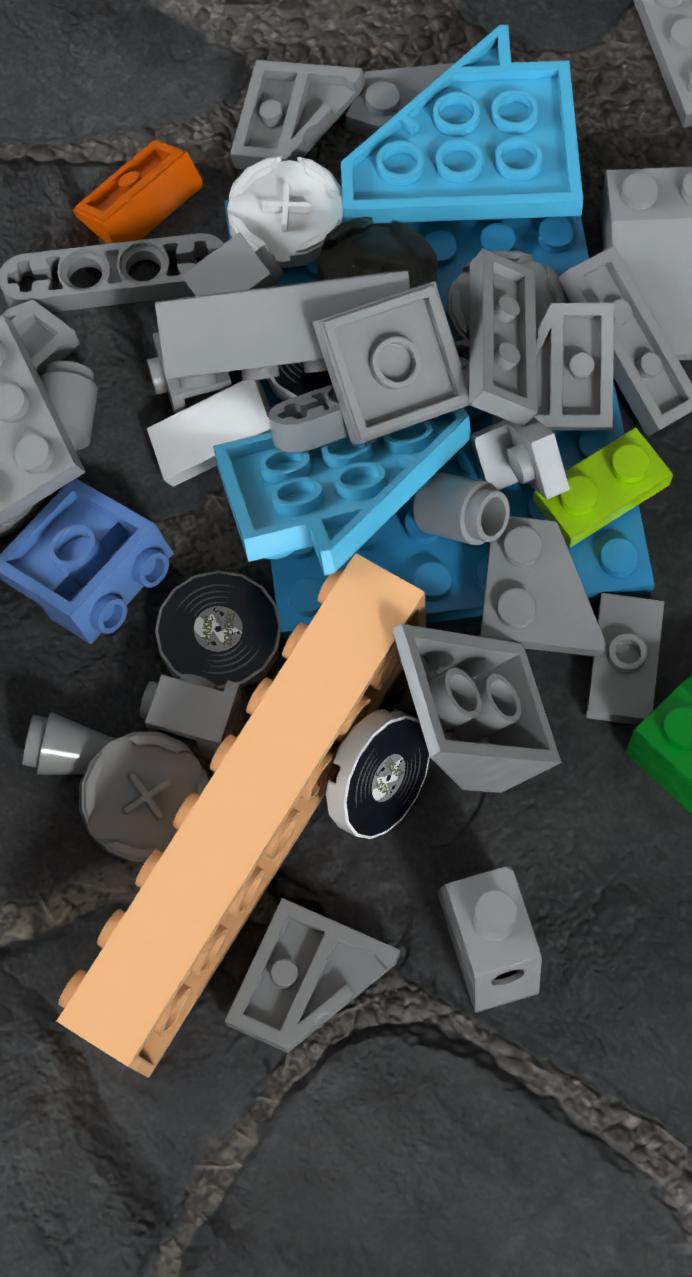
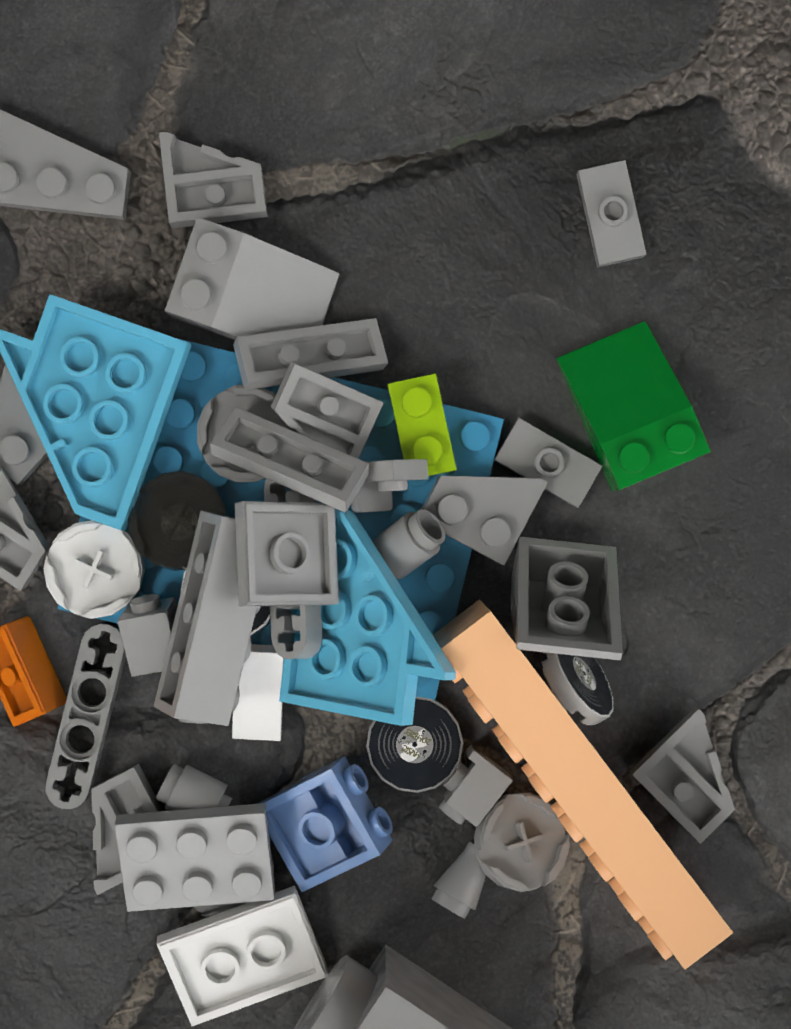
camera: 75 degrees left, 20 degrees up
(492, 937) = (710, 645): light grey torso -> none

